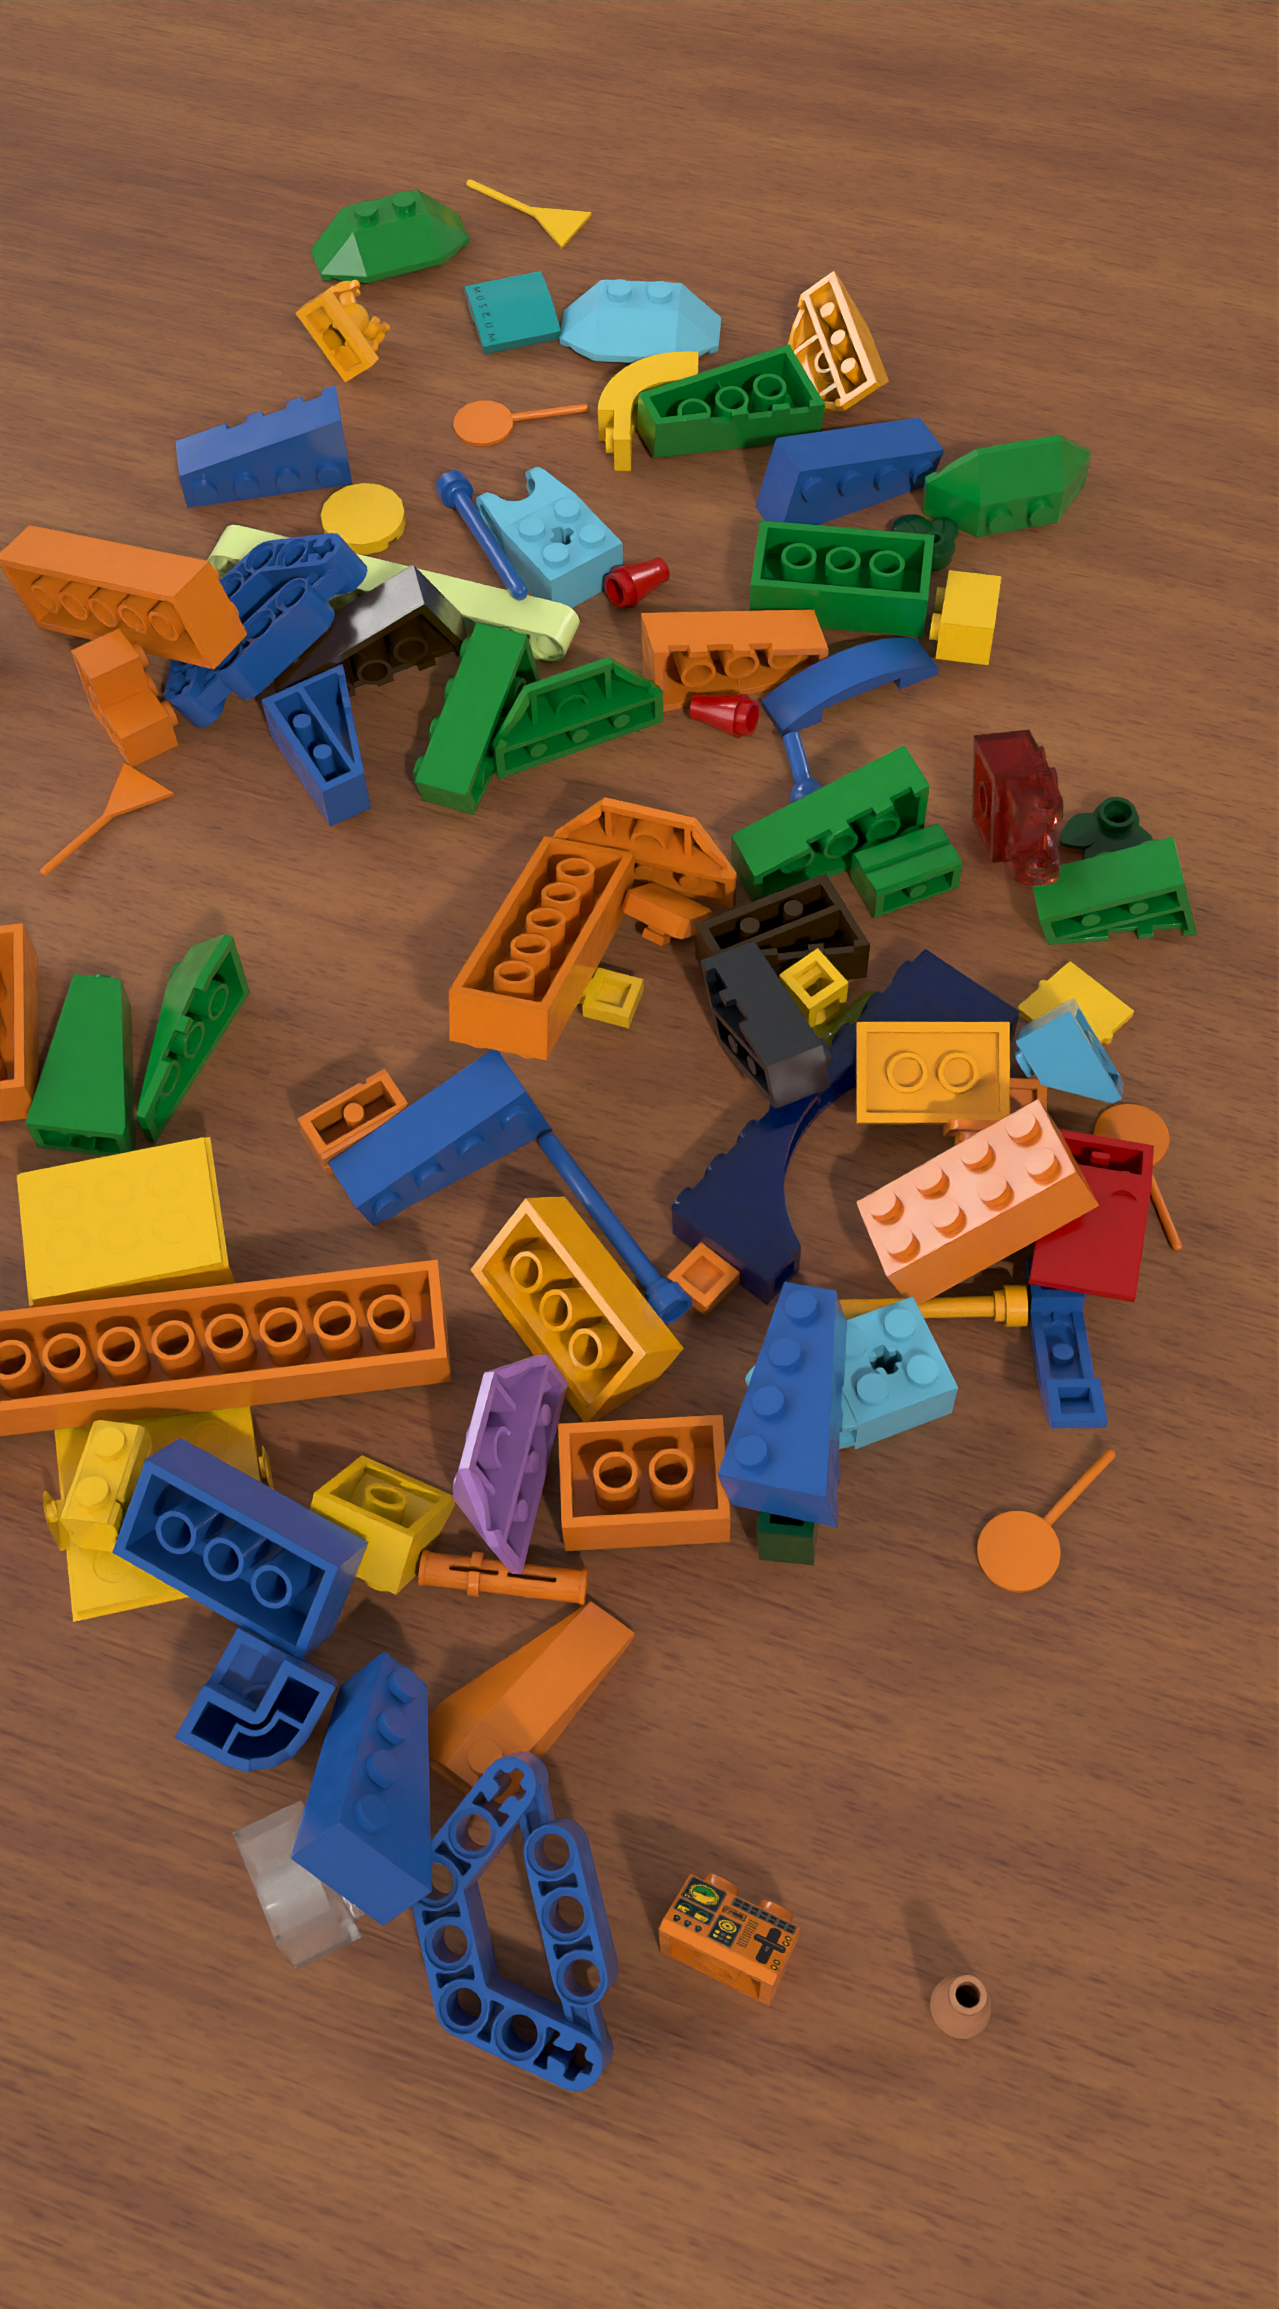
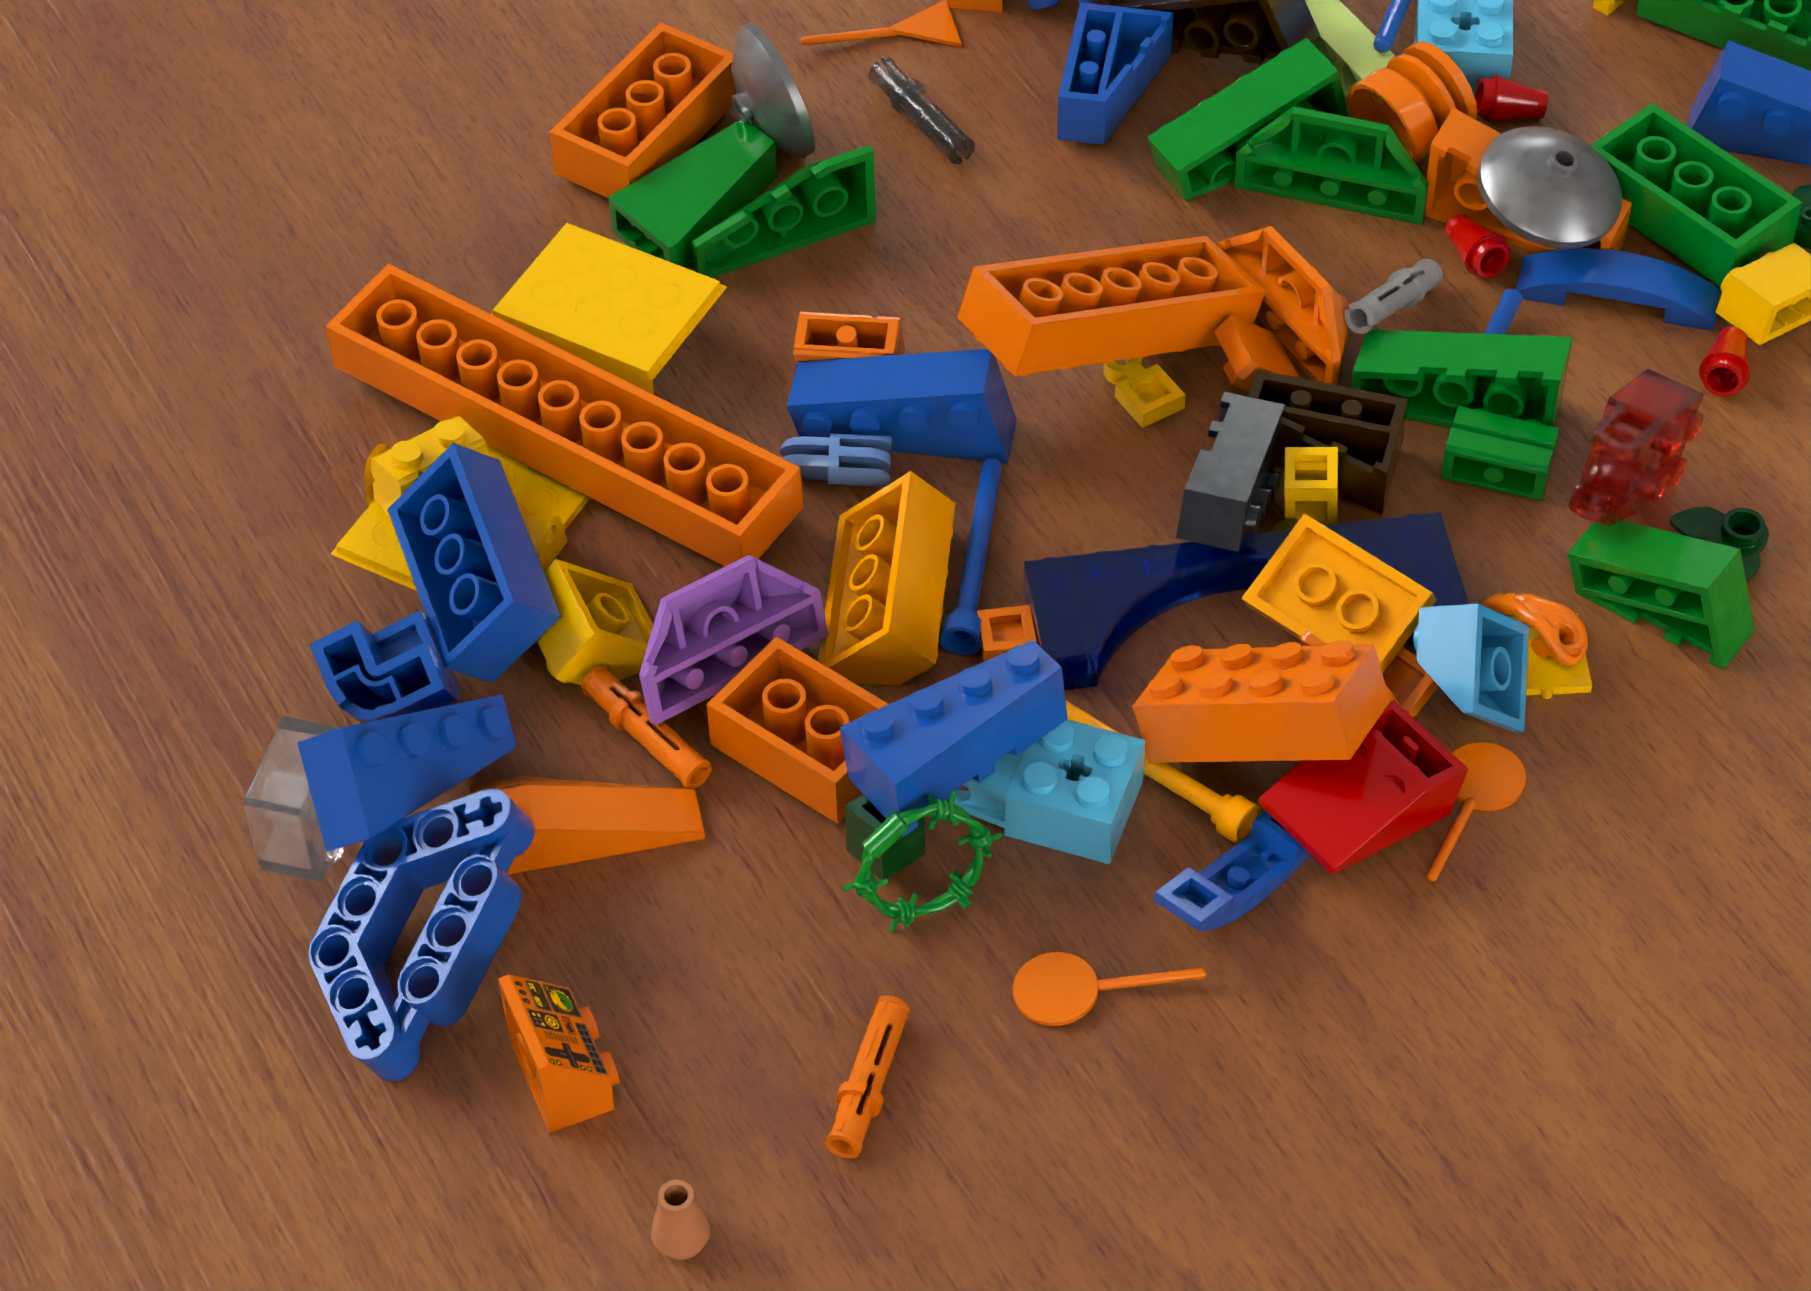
camera: 40 degrees right, 10 degrees down
(83, 937) = (769, 93): none -> flat silver dish
(184, 867) = (911, 99): none -> clear smoke pin
(430, 1223) = (841, 458): none -> medium blue arm
(593, 620) = (1413, 96): none -> orange wheel
(717, 786) = (1402, 290): none -> light grey pin
(758, 633) = (1549, 187): none -> flat silver dish
(840, 1528) = (892, 829): none -> green piece
(979, 1766) = (861, 1095): none -> orange pin
(983, 695) = (1726, 365): none -> red cone
(1081, 981) = (1559, 627): none -> orange piece

